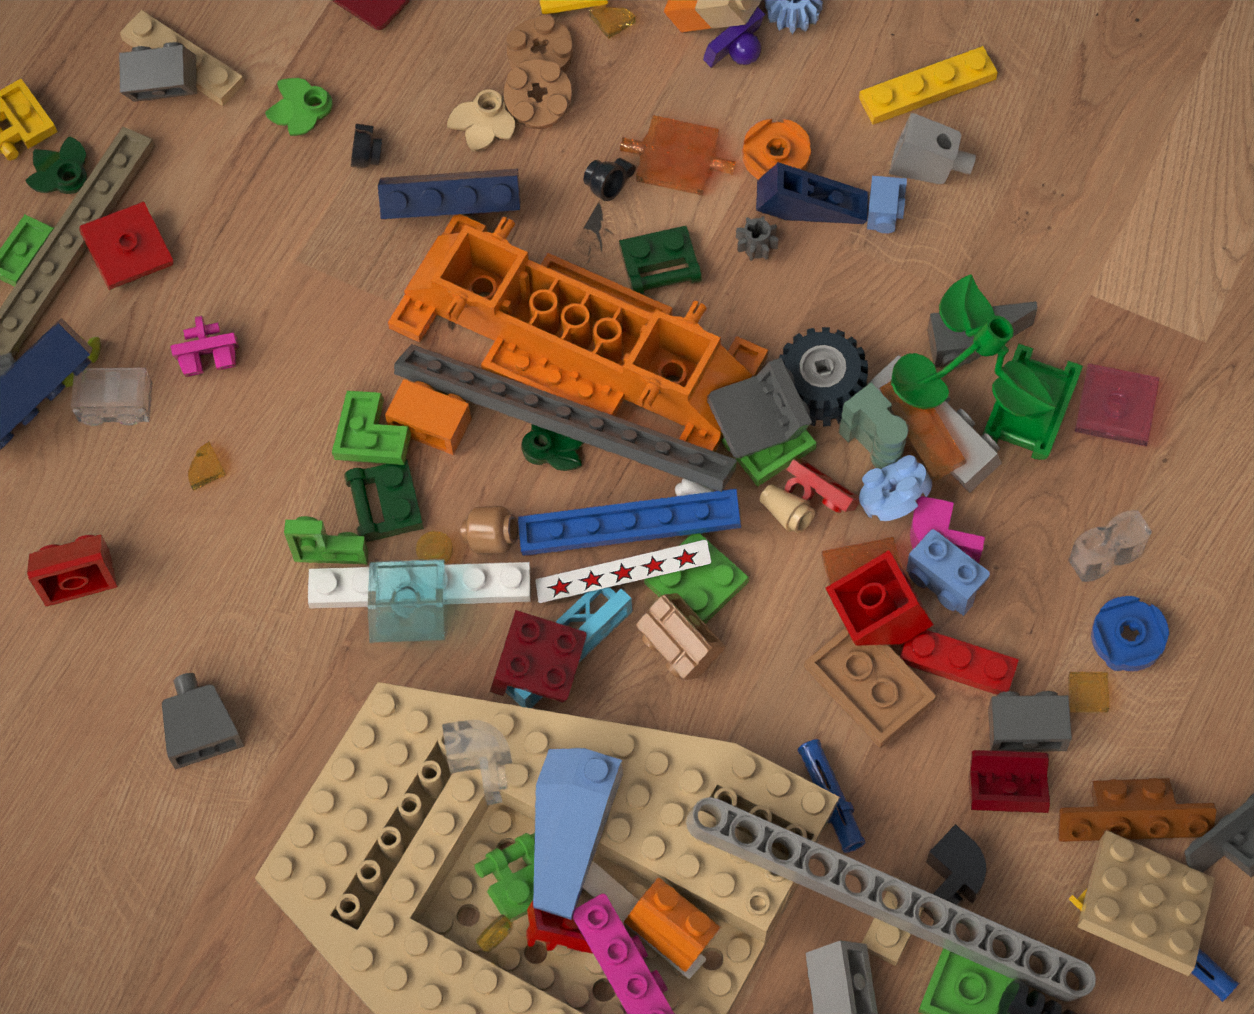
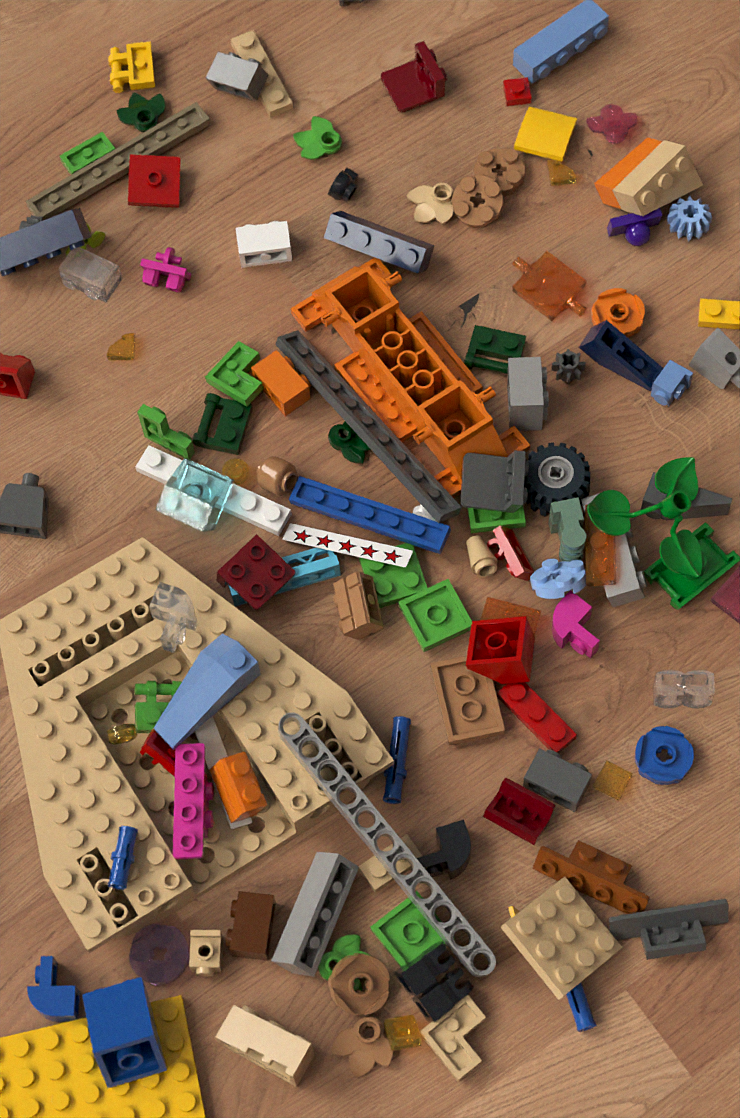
camera: 30 degrees right, 0 degrees up
(308, 260) = (263, 244): none -> white brick
(608, 177) = (492, 280): black piece -> none
(731, 291) = (527, 393): none -> light grey brick
(775, 602) = (435, 615): none -> bright green plate
(946, 572) = (561, 649): medium blue bracket -> none

